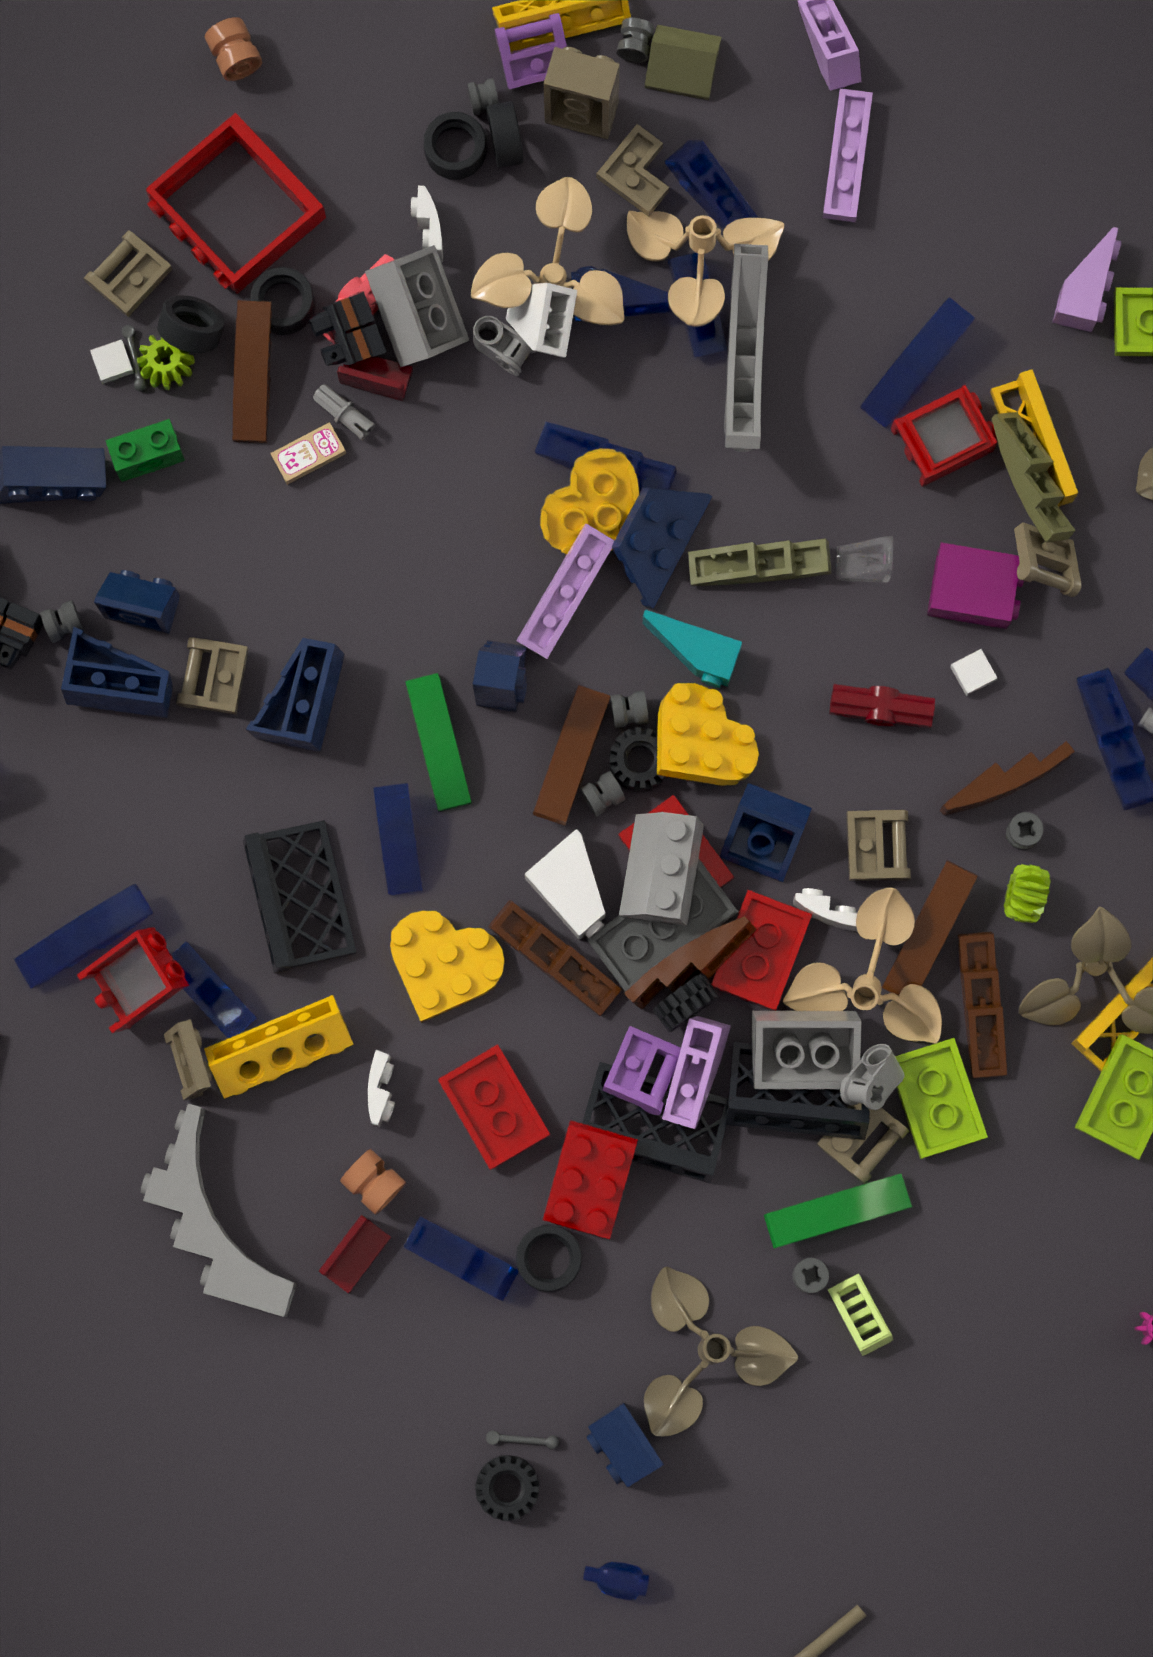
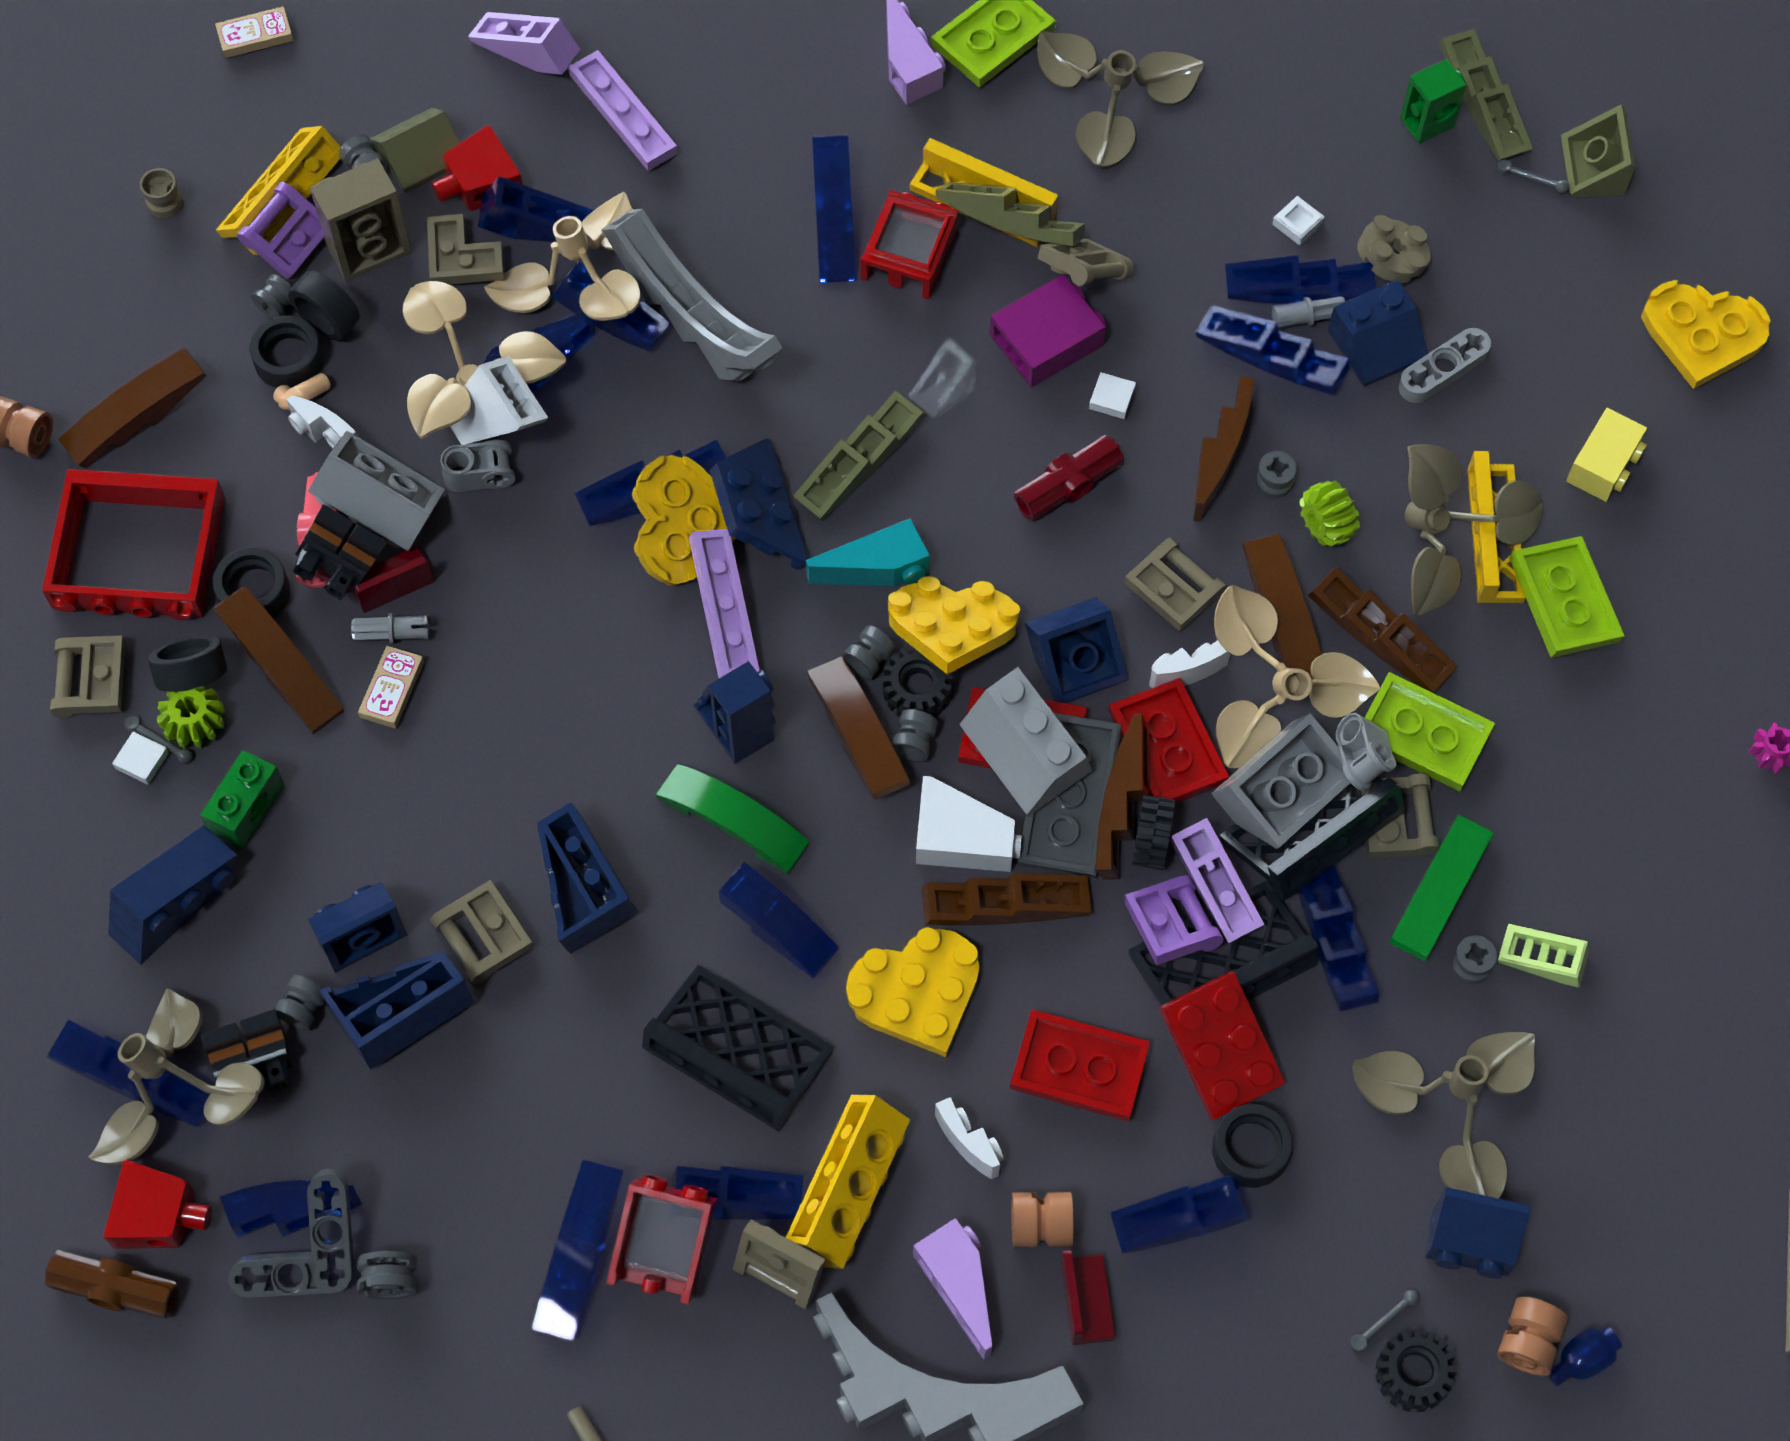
camera: 45 degrees left, 15 degrees down
(290, 1166) = (954, 1269): none -> lavender slope
(318, 98) = (131, 406): none -> reddish brown slope
(439, 186) = (308, 390): none -> light nougat arm
(596, 1537) = (1534, 1331): none -> nougat wheel
(704, 116) = (474, 167): none -> red torso
(735, 1182) = (1338, 941): none -> clear blue slope

